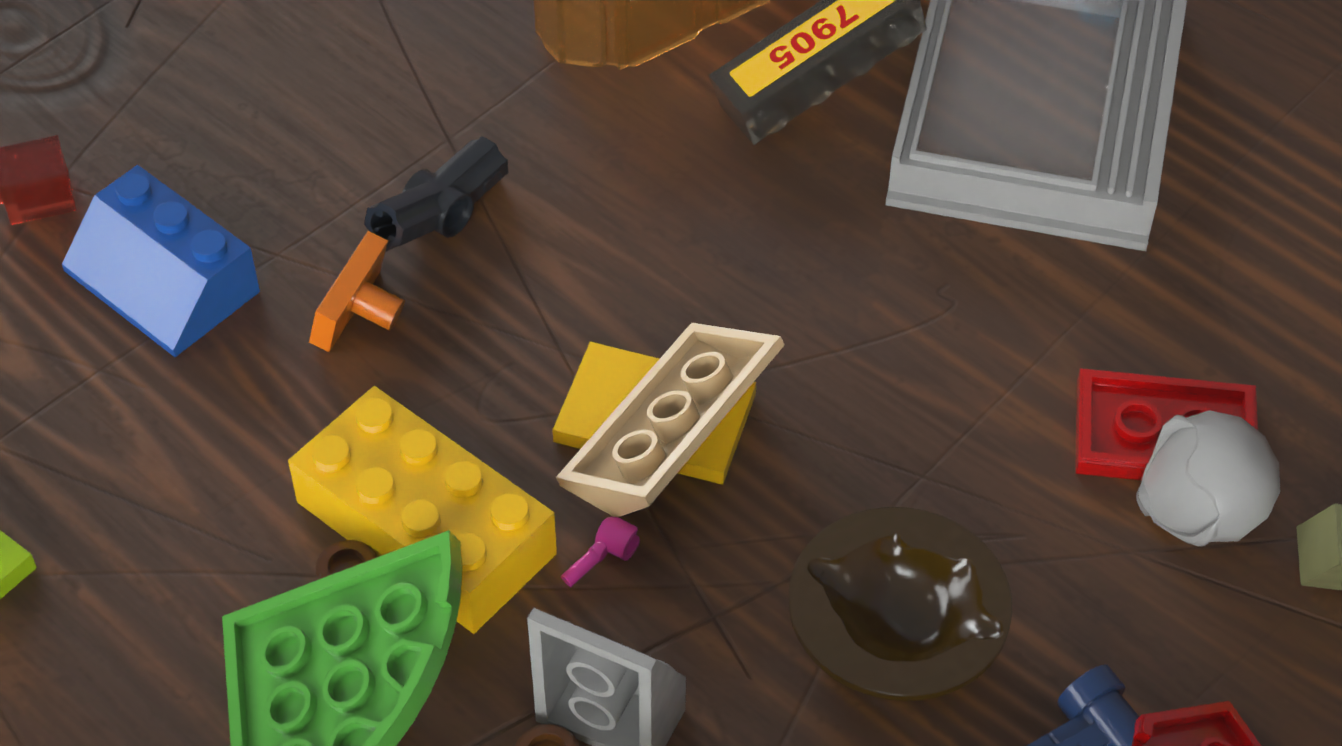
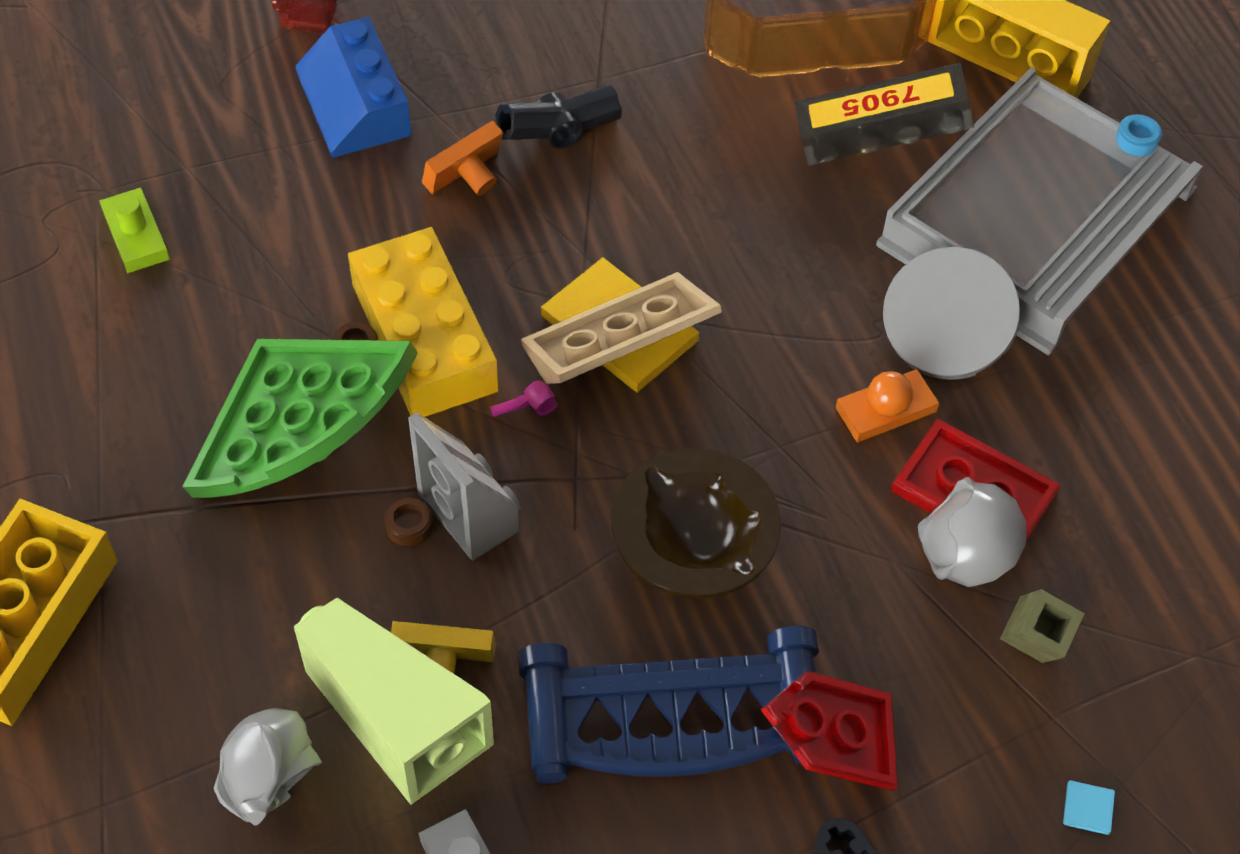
camera: 25 degrees right, 5 degrees up
(1014, 377) = (886, 404): none -> orange tile
(1027, 243) = (951, 312): none -> light grey tile

